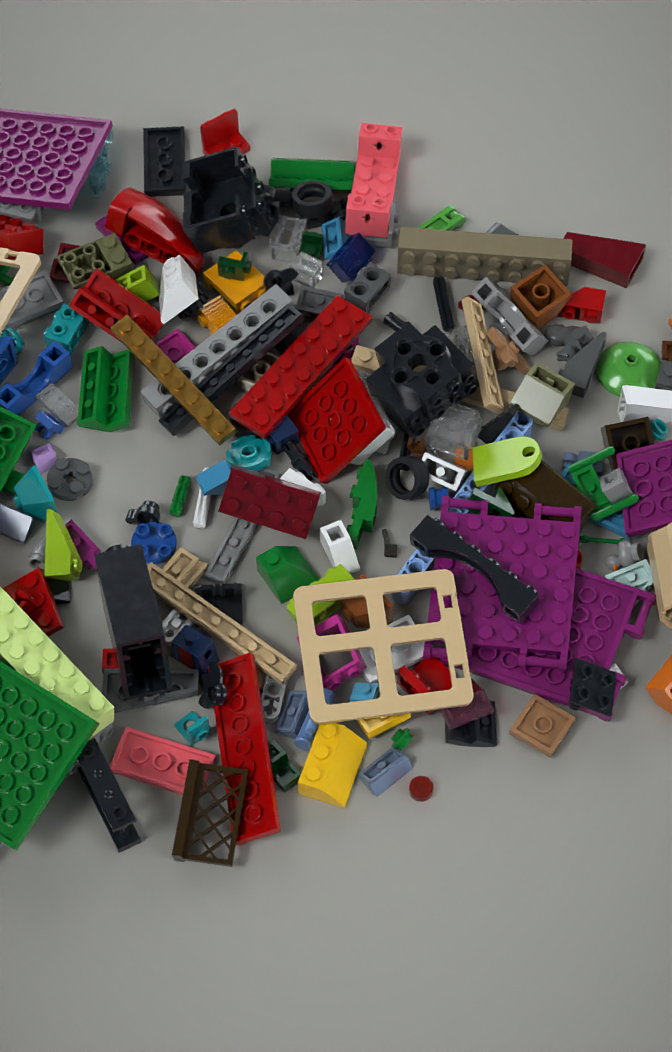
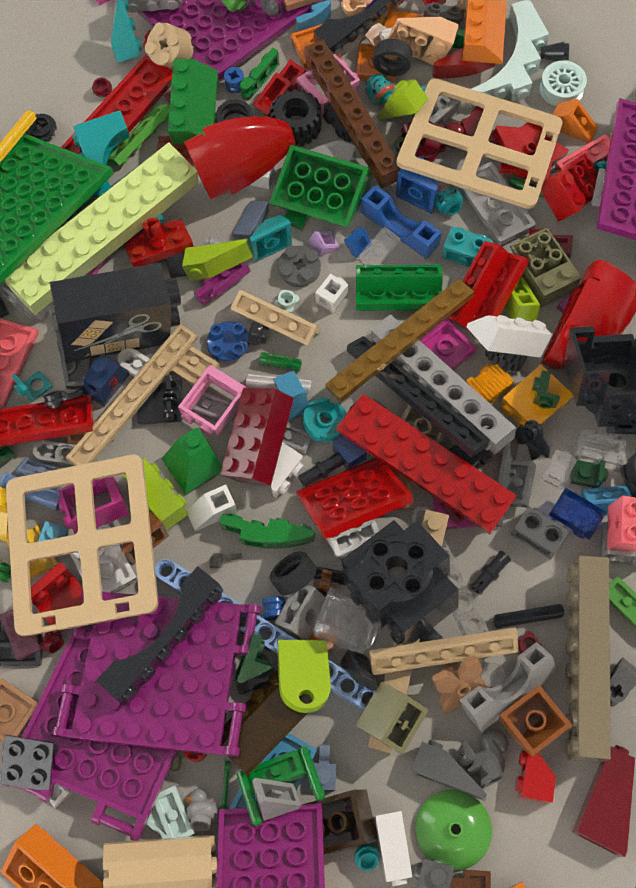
camera: 90 degrees right, 10 degrees up
(107, 446) = (324, 294): none -> white brick
(110, 484) = (286, 295): none -> light aqua plate
(133, 495) = (275, 318): none -> tan fence
(210, 531) = (224, 382): none -> bright pink window

